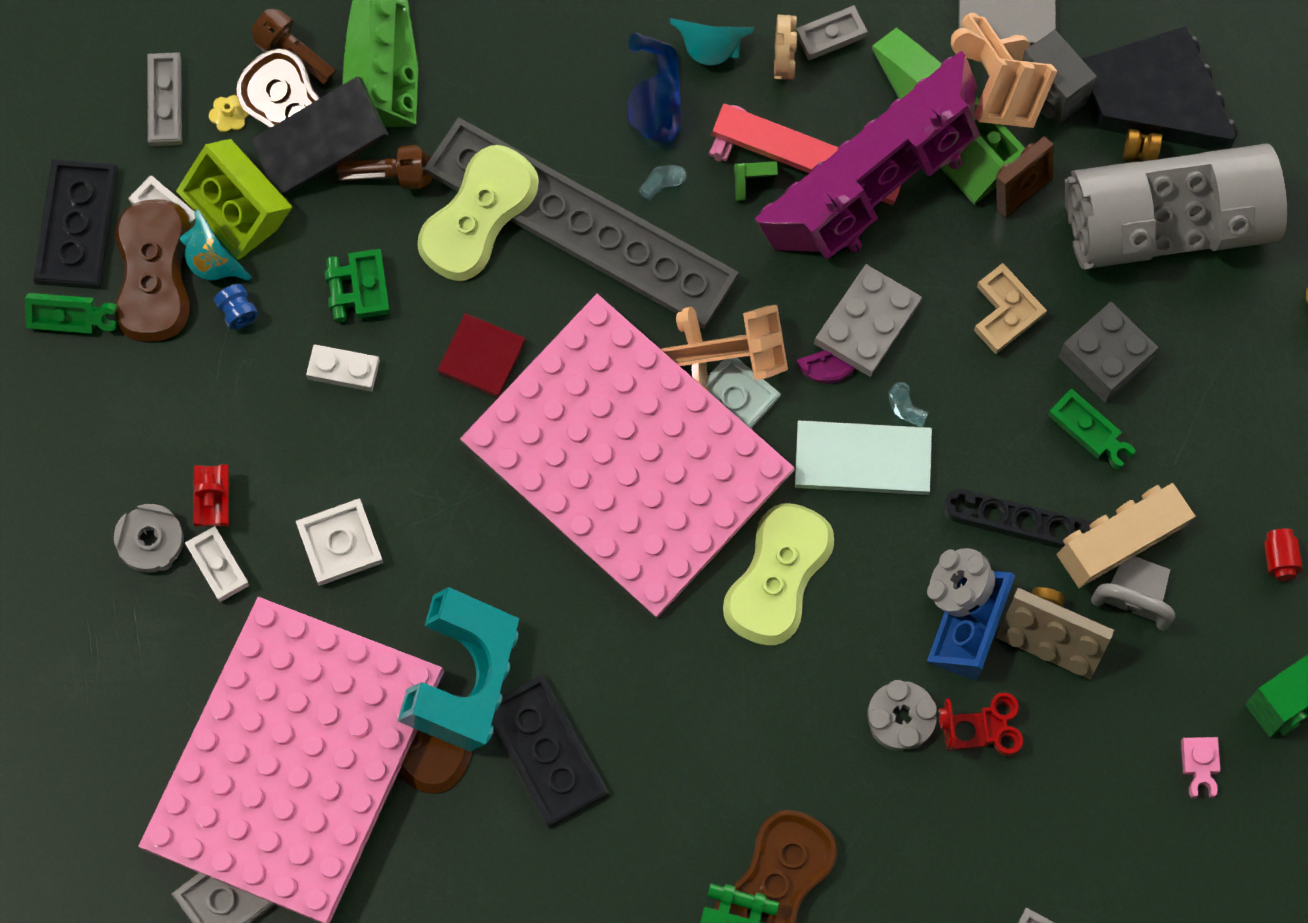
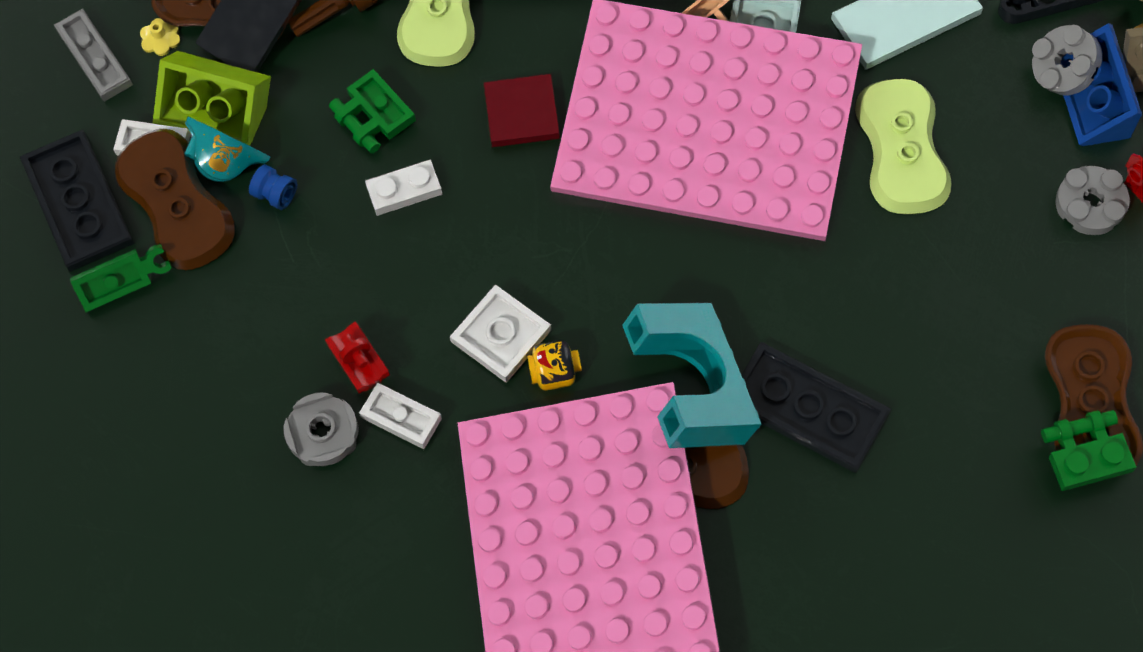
camera: 25 degrees left, 5 degrees down
(363, 594) = (553, 365): none -> head

